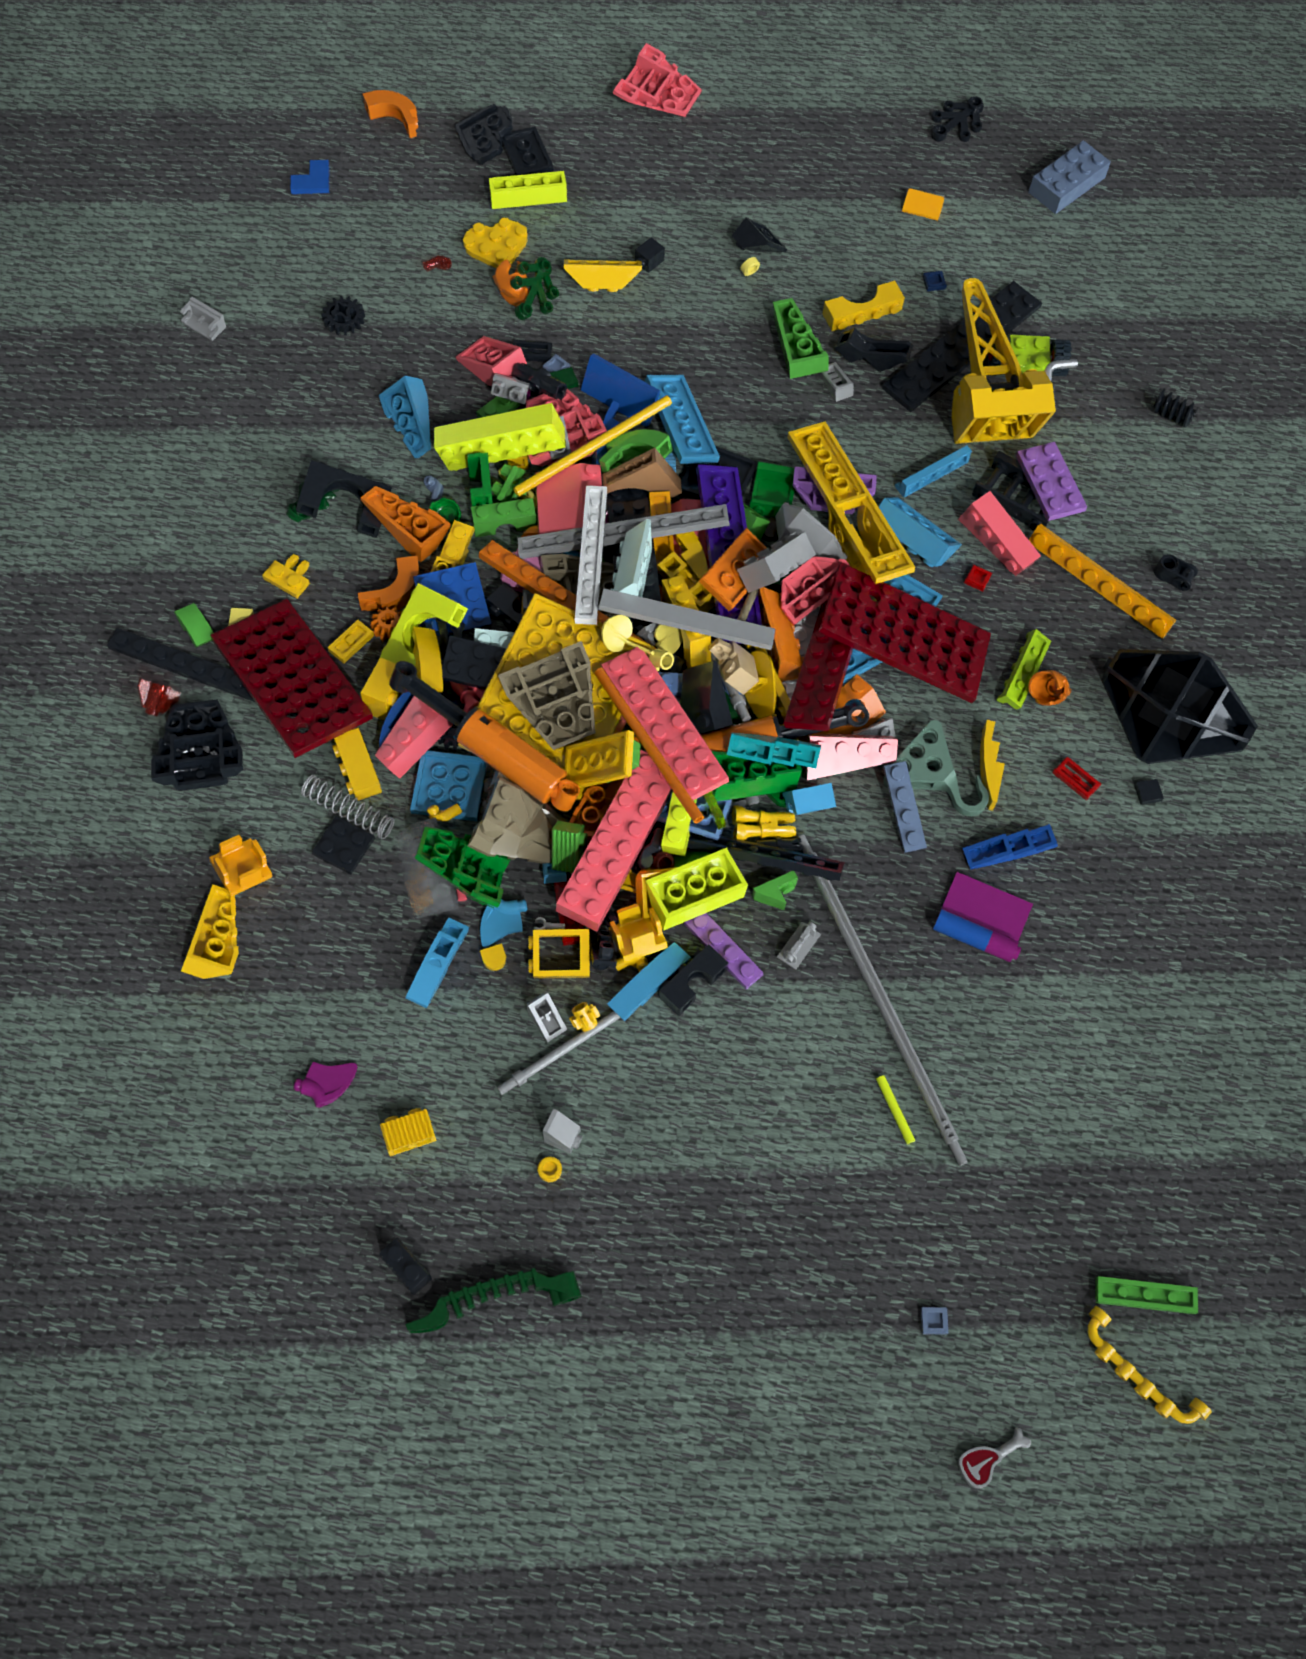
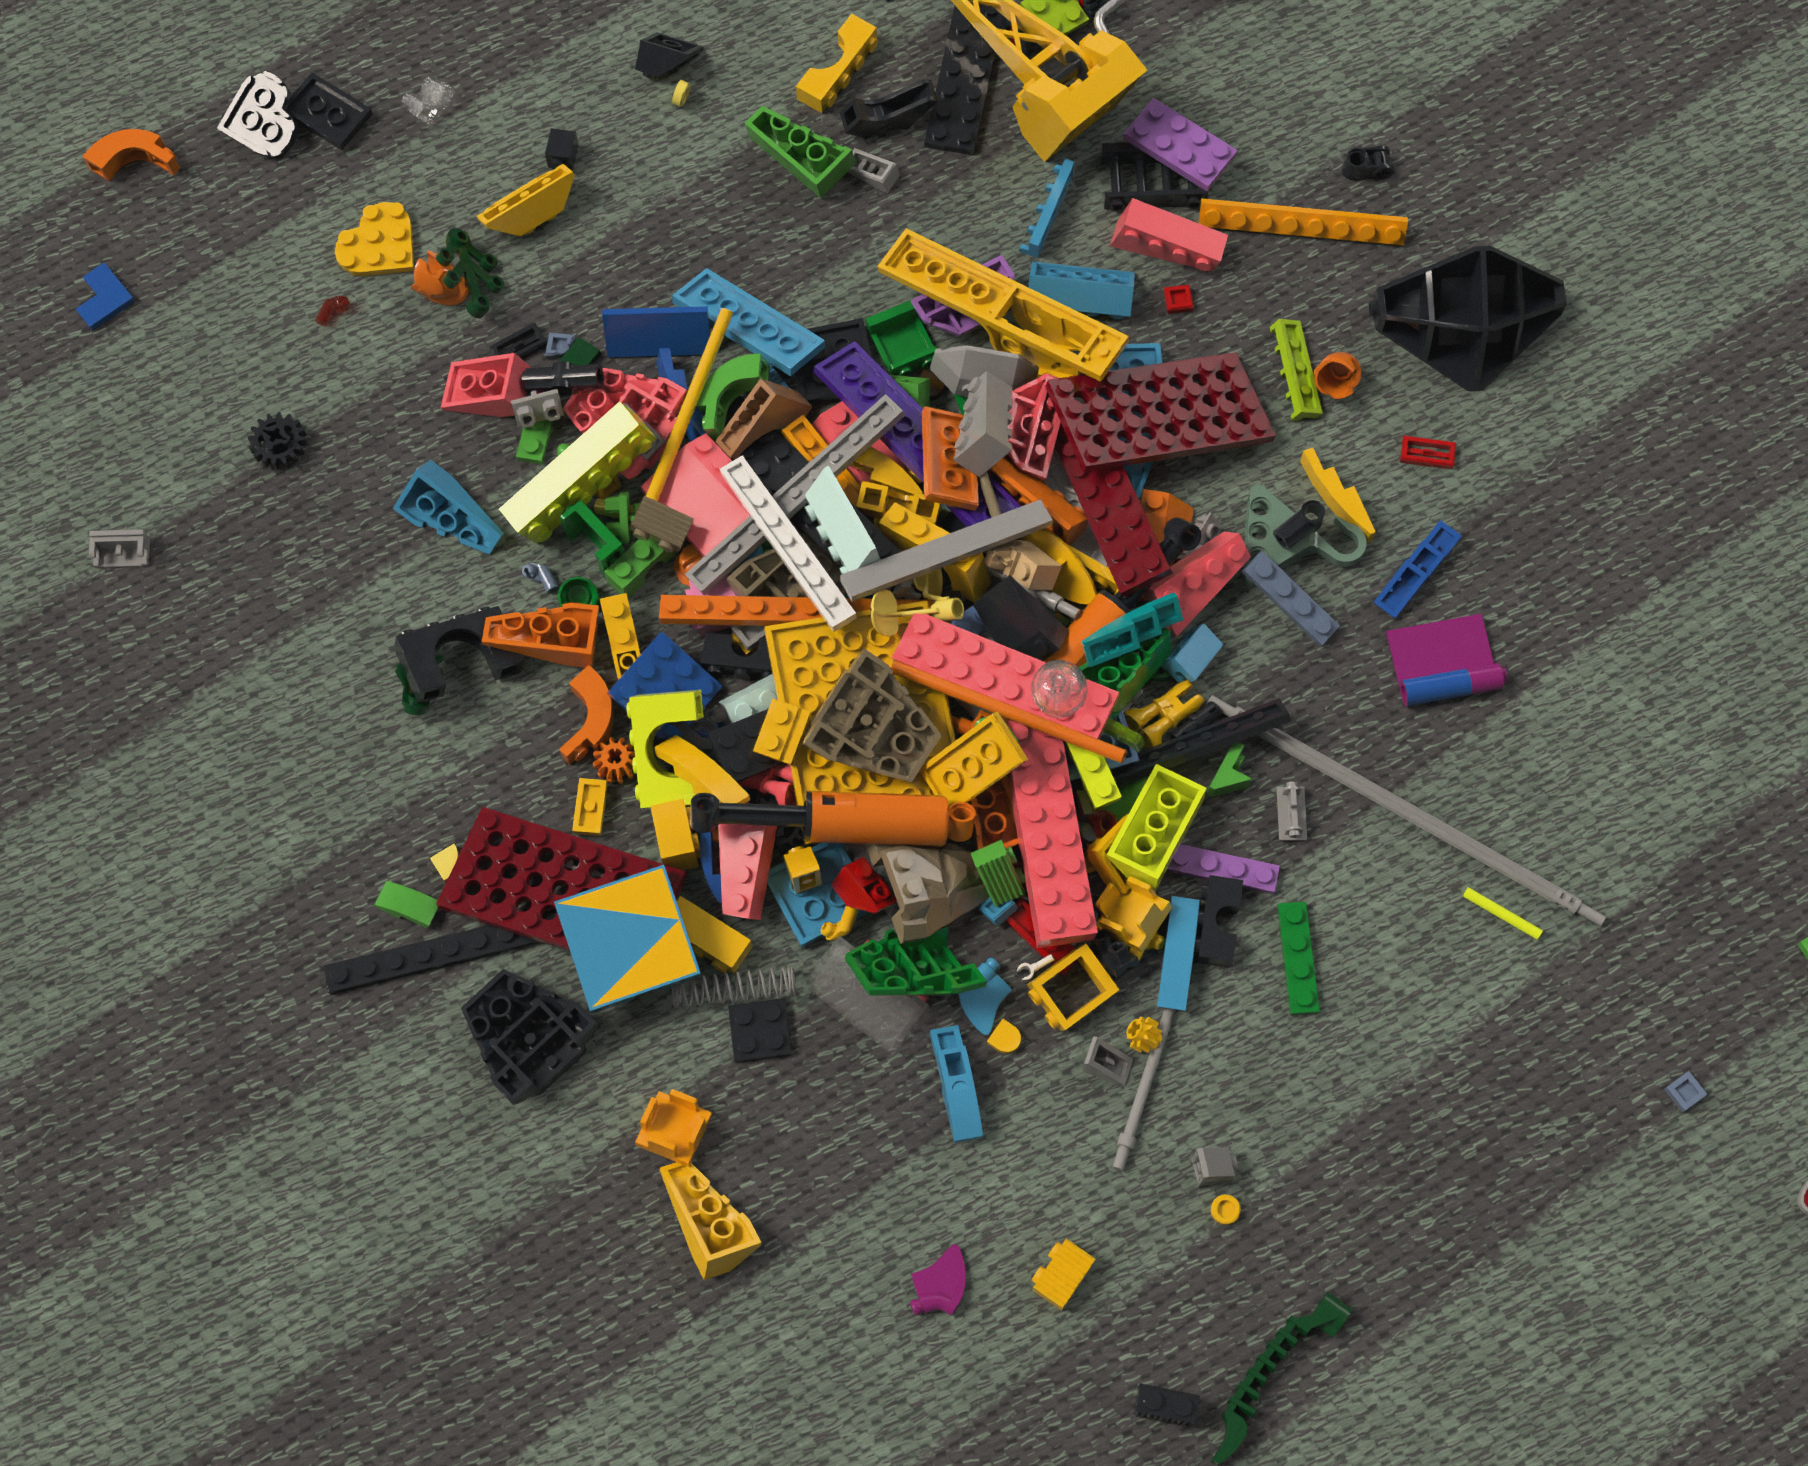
camera: 30 degrees left, 5 degrees up
(156, 697) = (434, 1012): clear red brick -> none
(286, 578) = (461, 784): yellow hinge -> none
(299, 726) = (627, 938): none -> tile
(445, 761) = (803, 868): none -> yellow slope
(473, 795) = (862, 887): none -> red slope
(493, 662) = (782, 732): none -> yellow plate
(525, 497) = (661, 524): none -> dark tan brick
(528, 189) = (367, 156): neon yellow brick -> none
(593, 183) = (432, 101): none -> clear brick
(689, 747) = (1059, 688): none -> clear cylinder
(729, 1041) = (1298, 958): none -> green plate
(944, 763) = (1299, 525): none -> black piece
(1149, 791) = (1505, 419): black tile -> none

